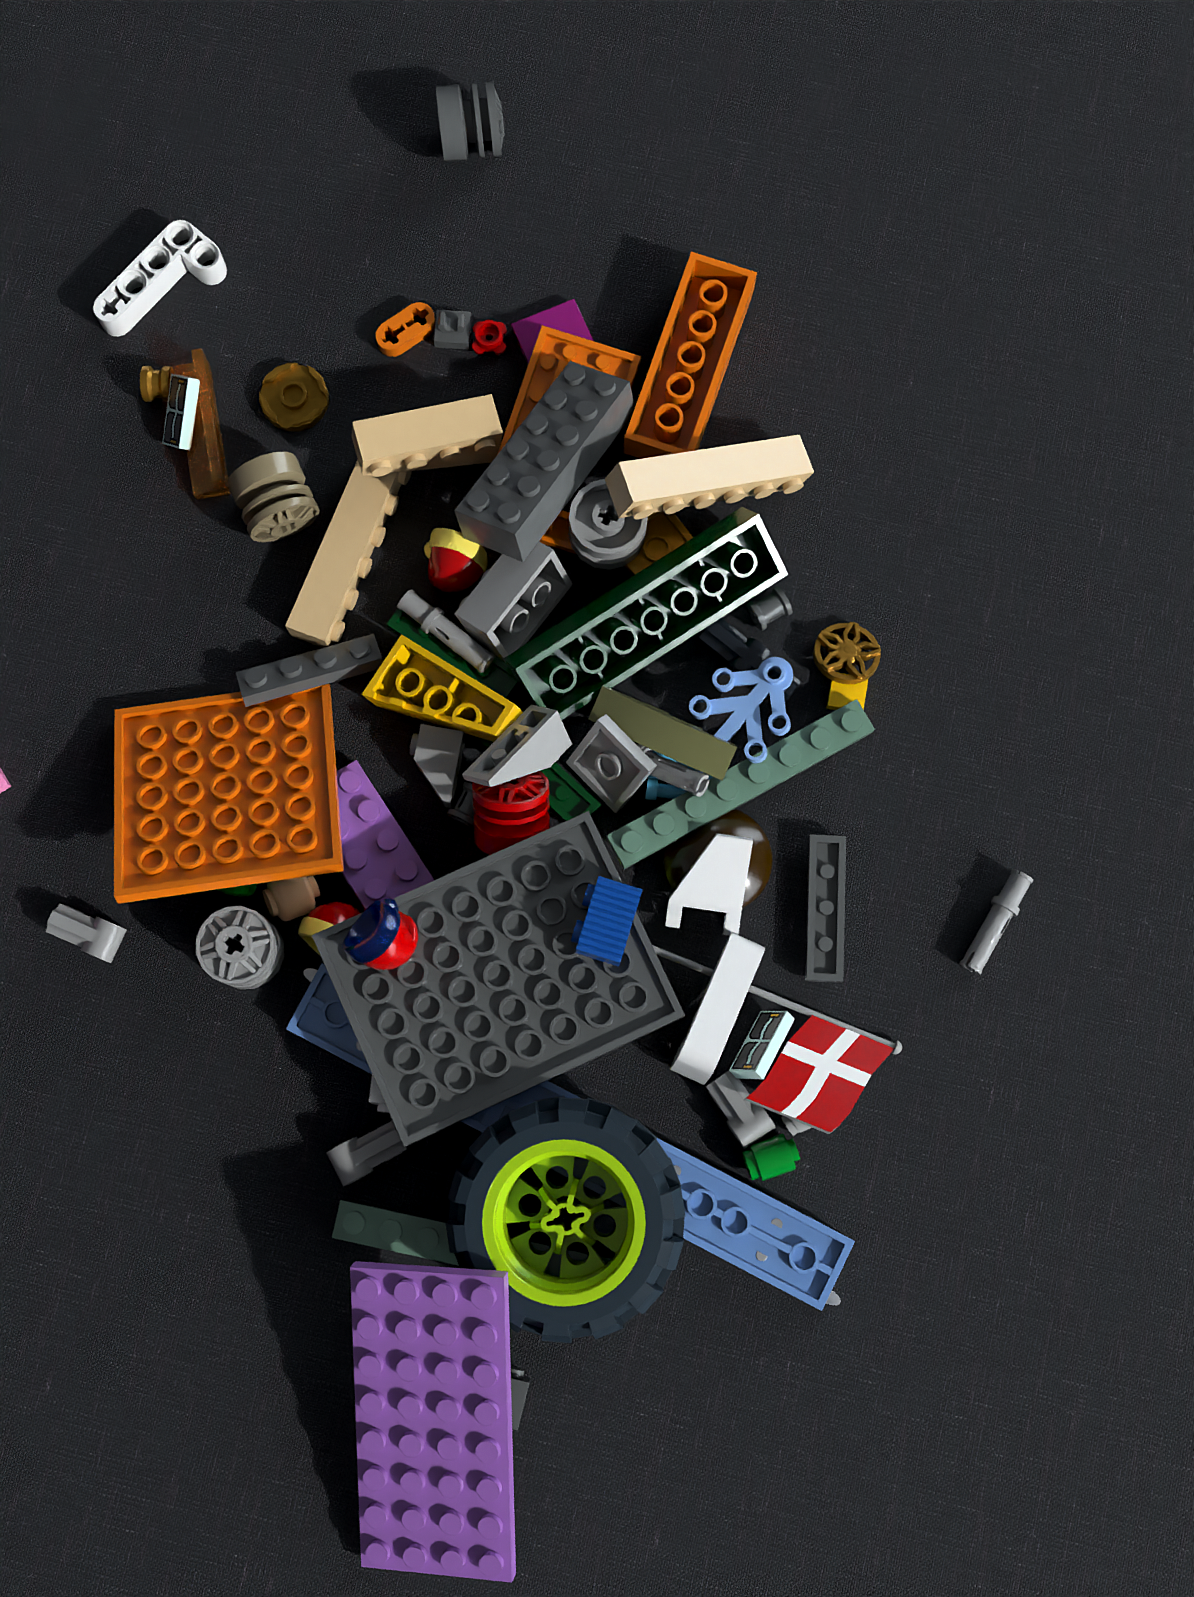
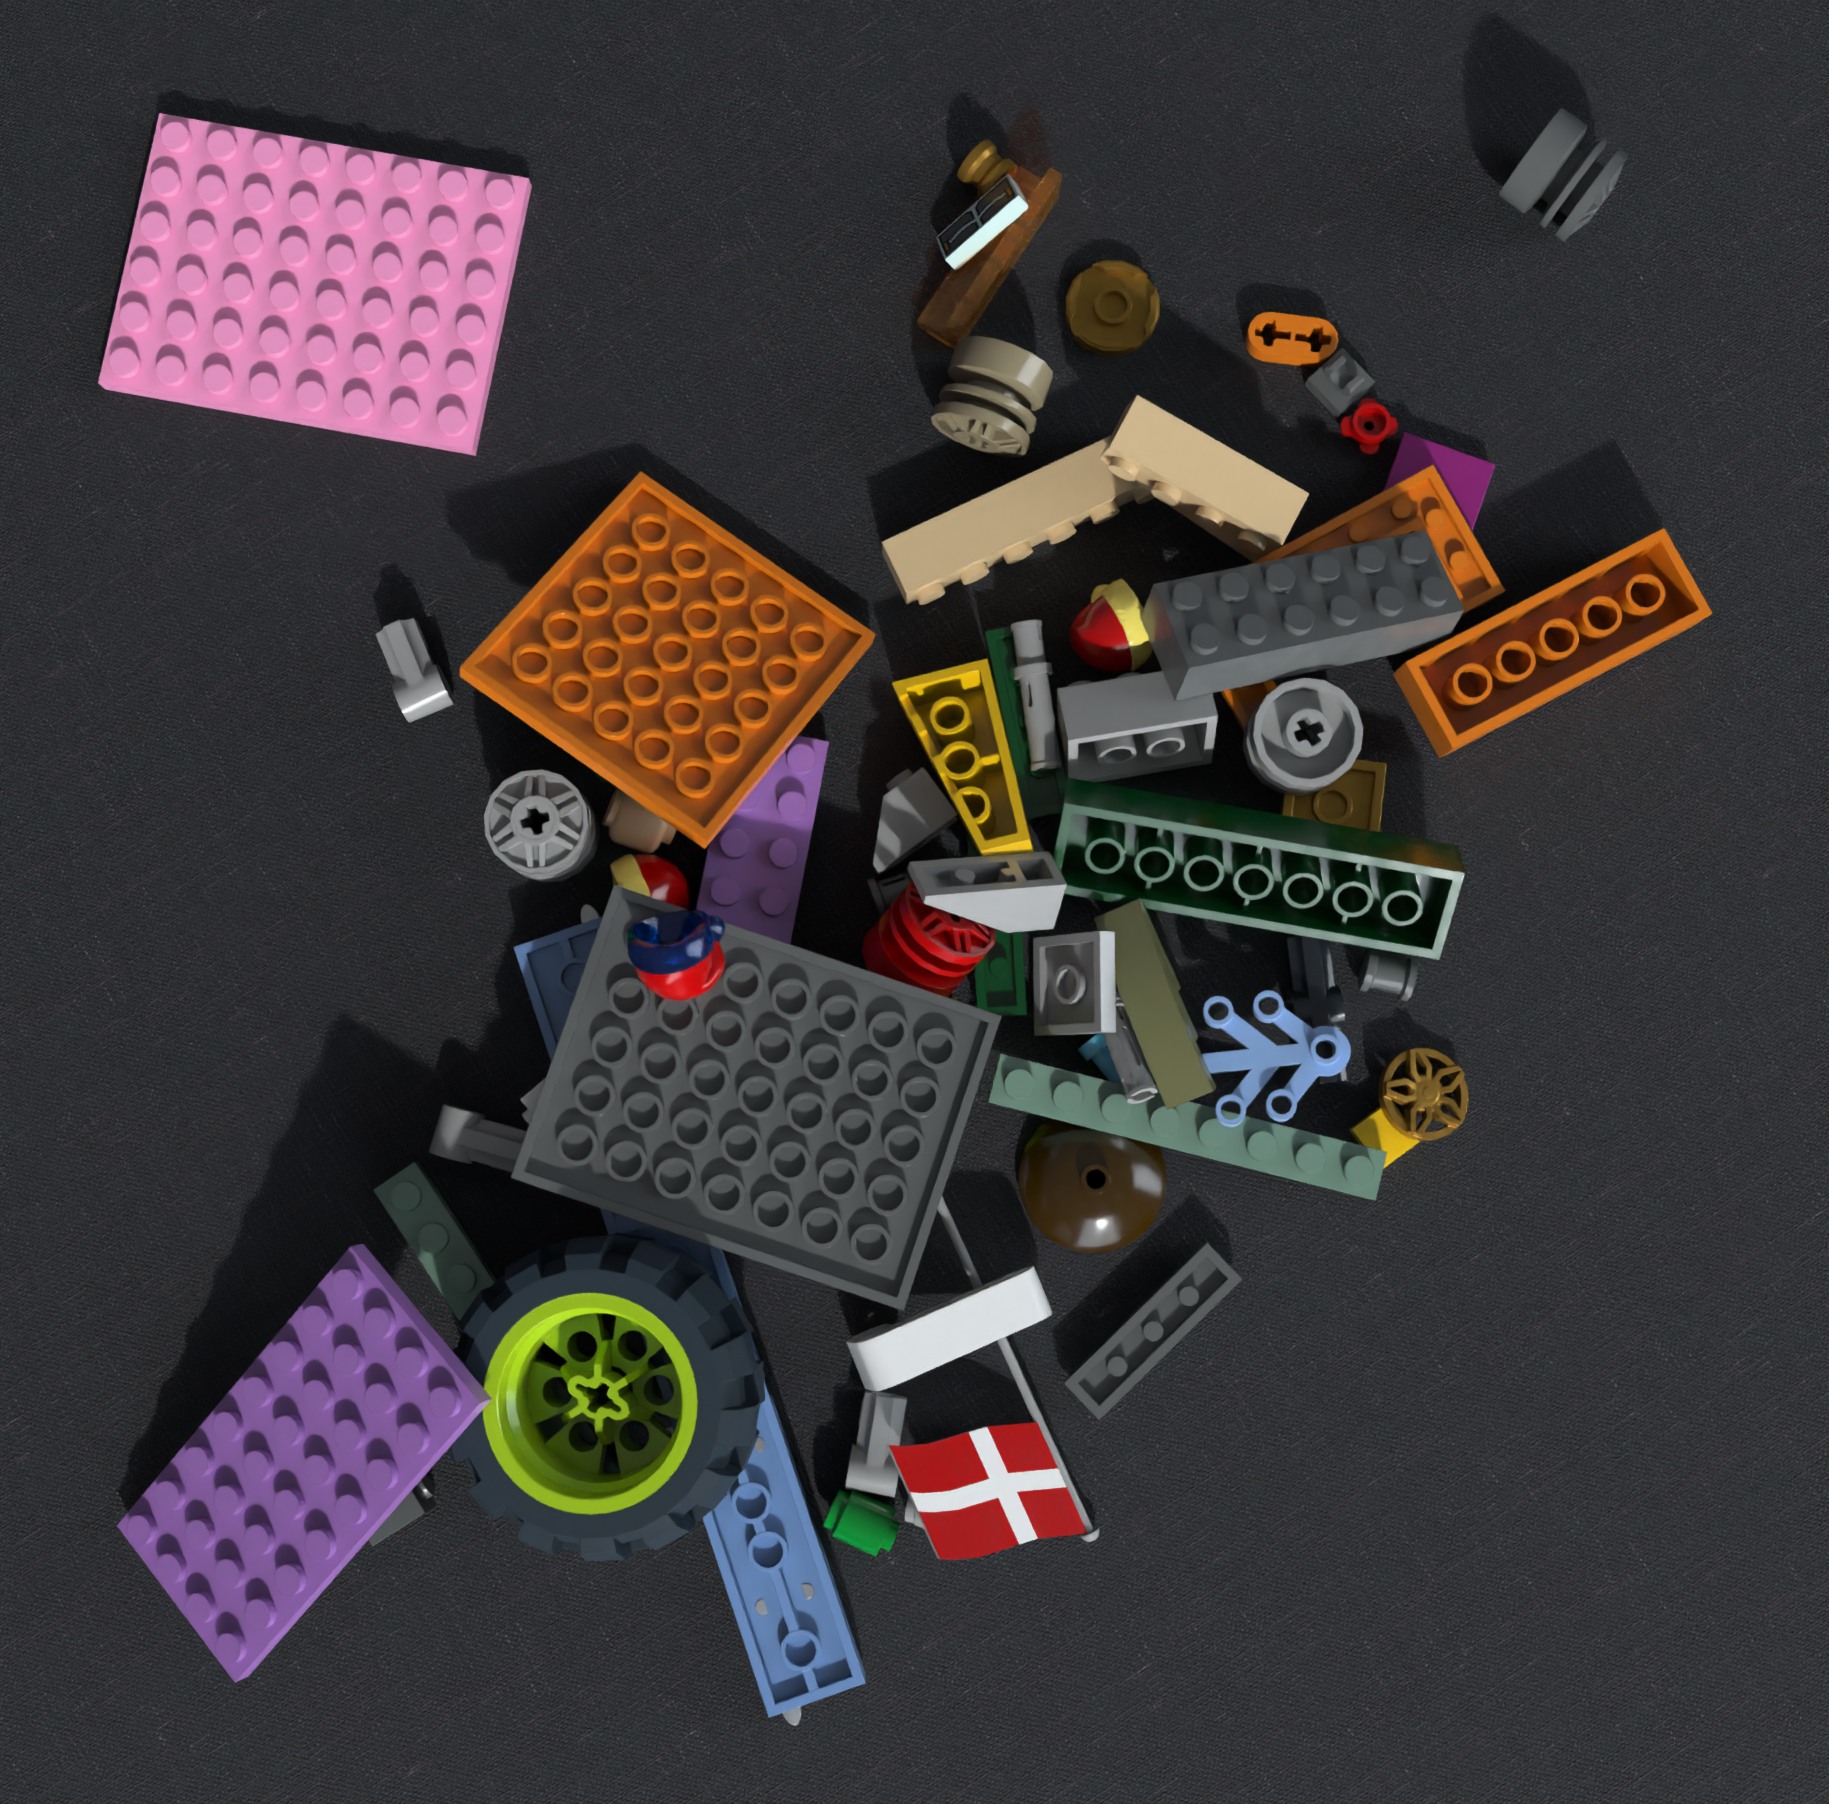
camera: 45 degrees right, 5 degrees up
(119, 317) = (1084, 62): white beam -> none
(309, 670) = (866, 608): dark grey plate -> none
(607, 920) = (914, 1146): blue brick -> none
(708, 476) = (1452, 784): brick -> none
(715, 882) = (1064, 1201): white flag -> none
(761, 1045) = (957, 1405): tile -> none
(996, 921) = (1312, 1507): light grey pin -> none

